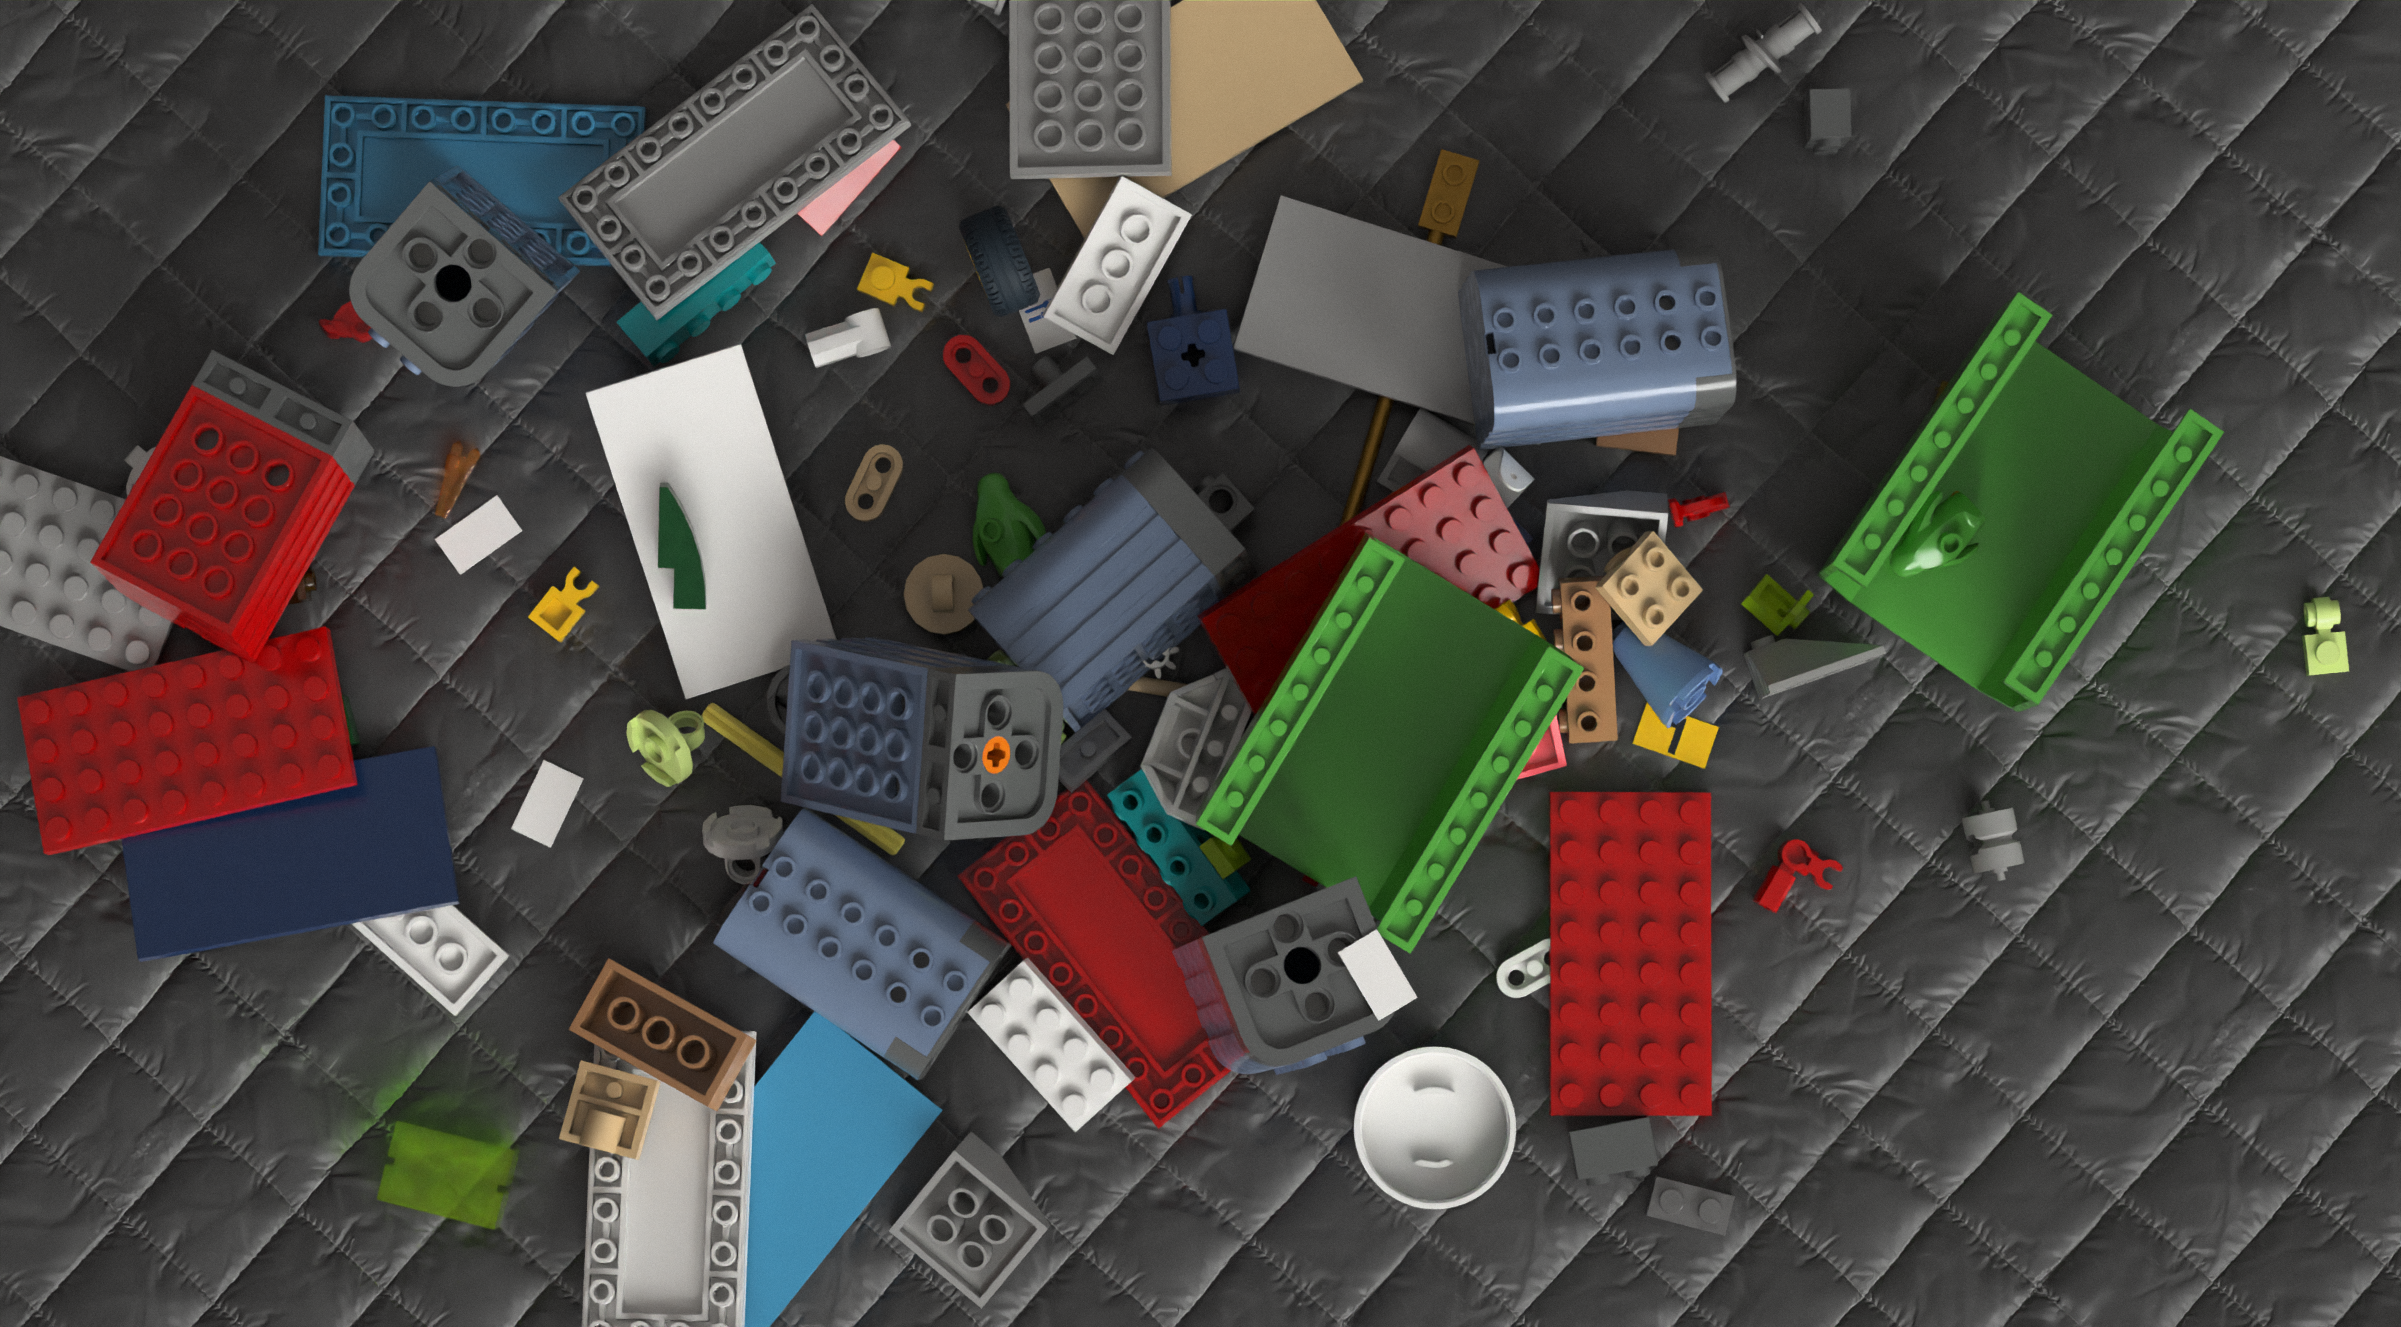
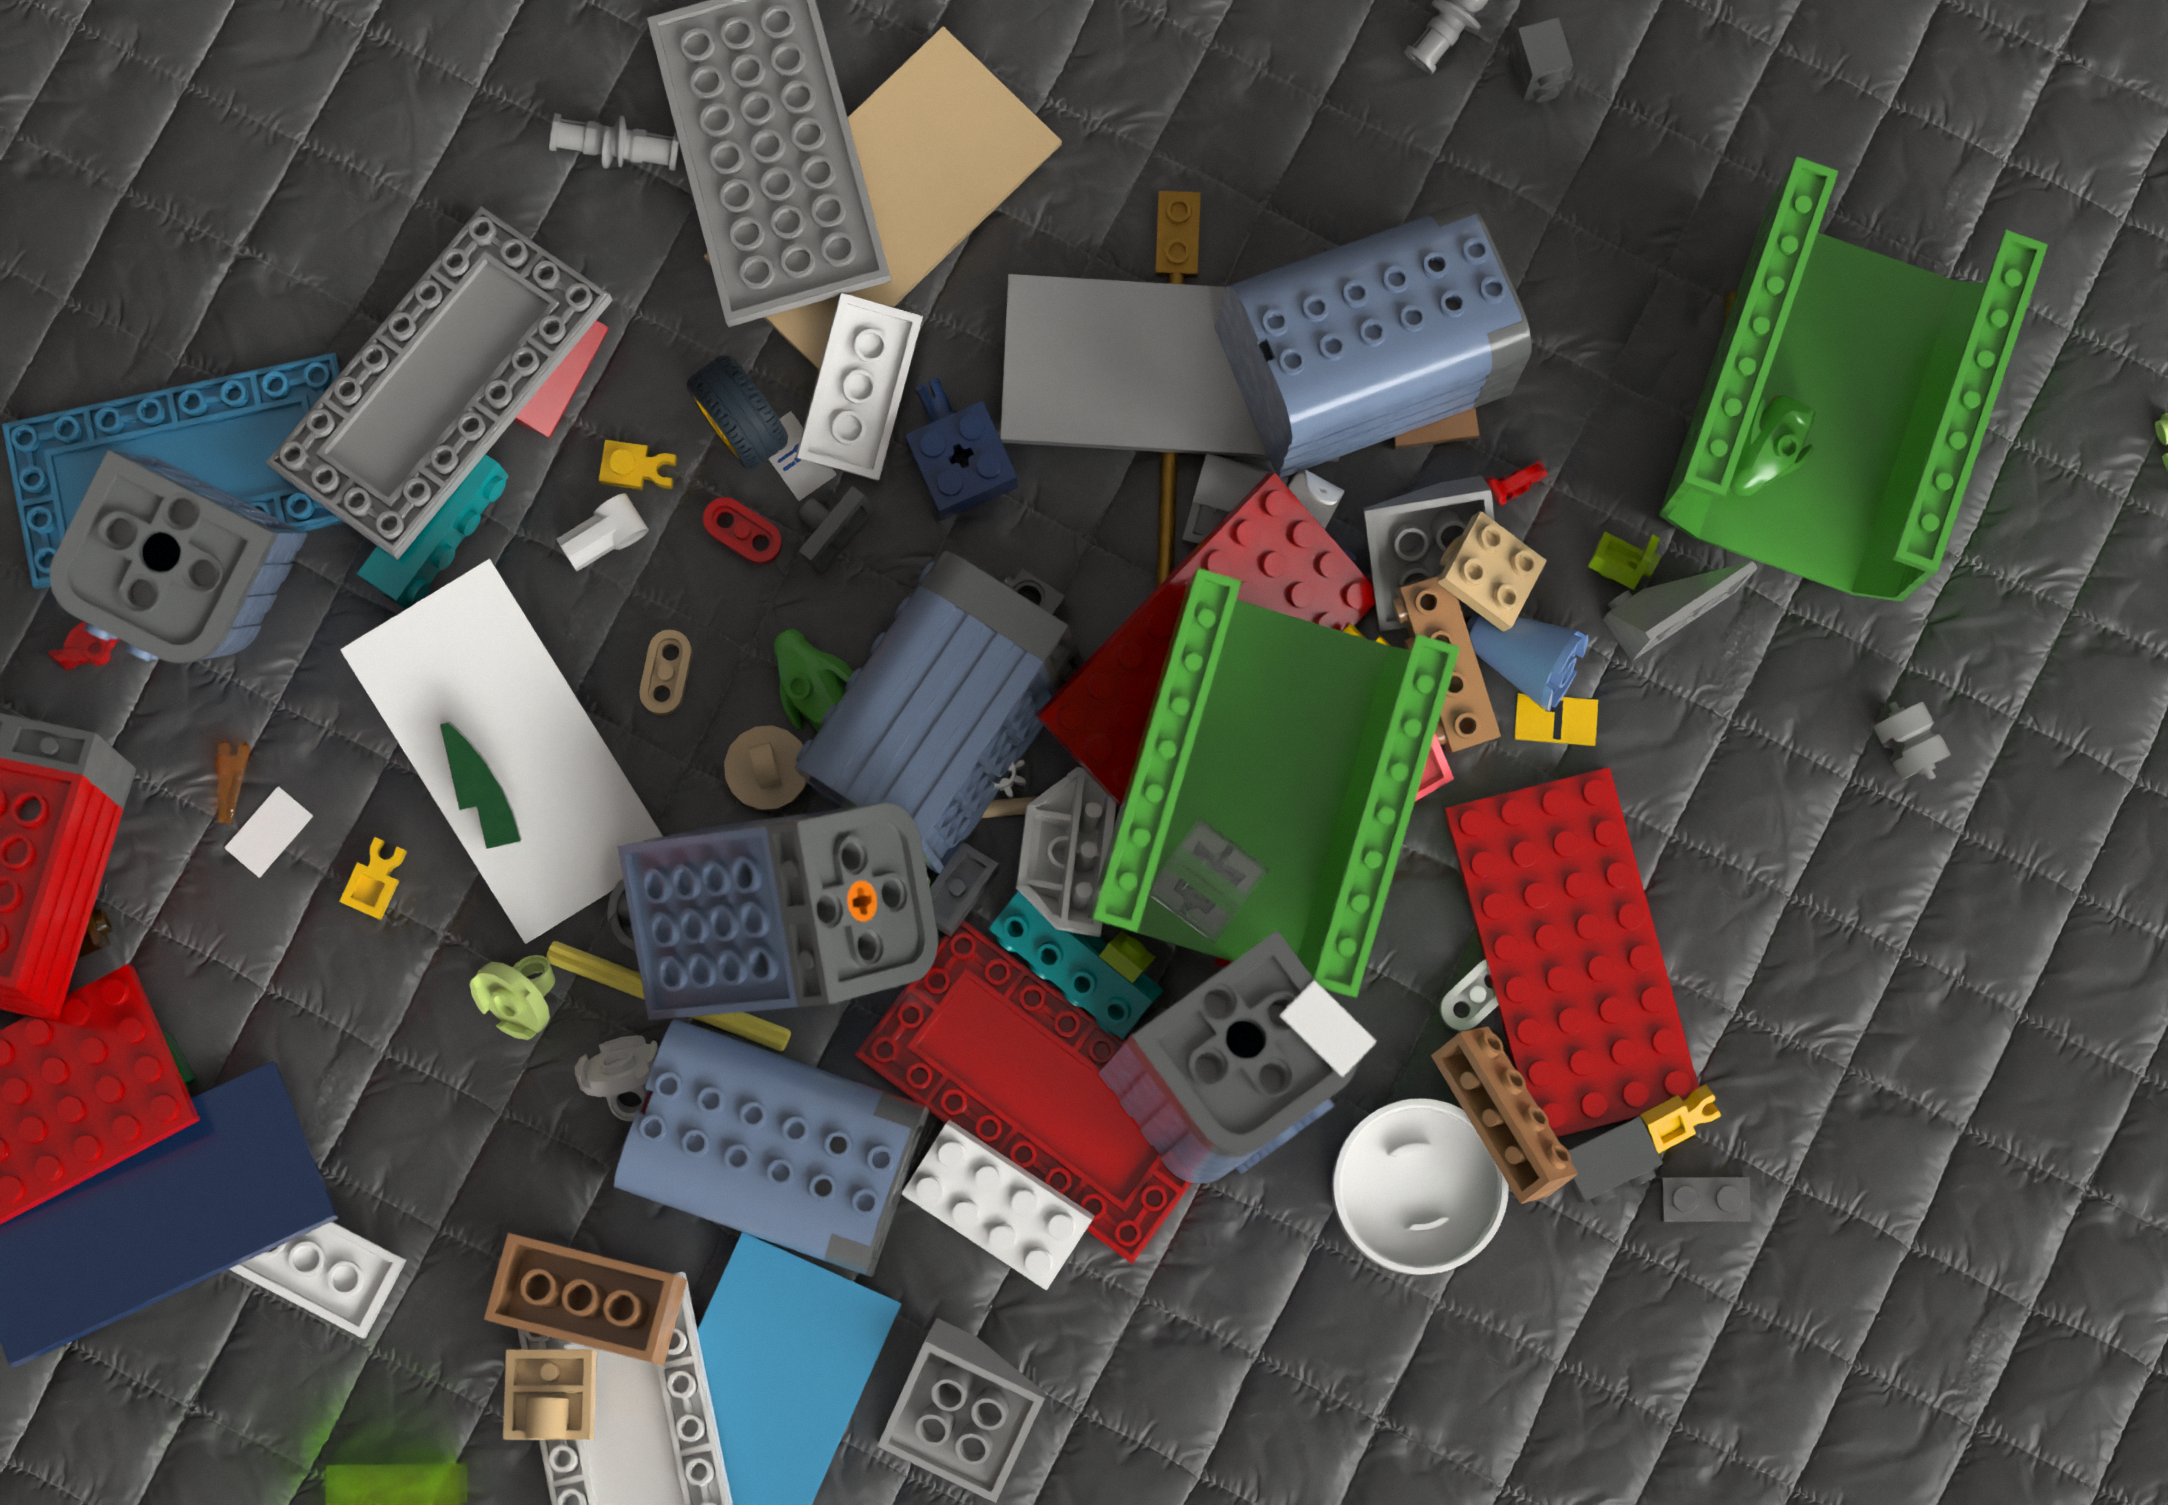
camera: 20 degrees left, 5 degrees down
(547, 803) = (407, 1091): white sticker -> none
(1314, 804) = (1207, 880): none -> clear slope
(1526, 1083) = (1504, 1114): none -> medium nougat brick
(1681, 1127) = (1675, 1118): none -> yellow plate
(1792, 857) = (1712, 811): red bar -> none

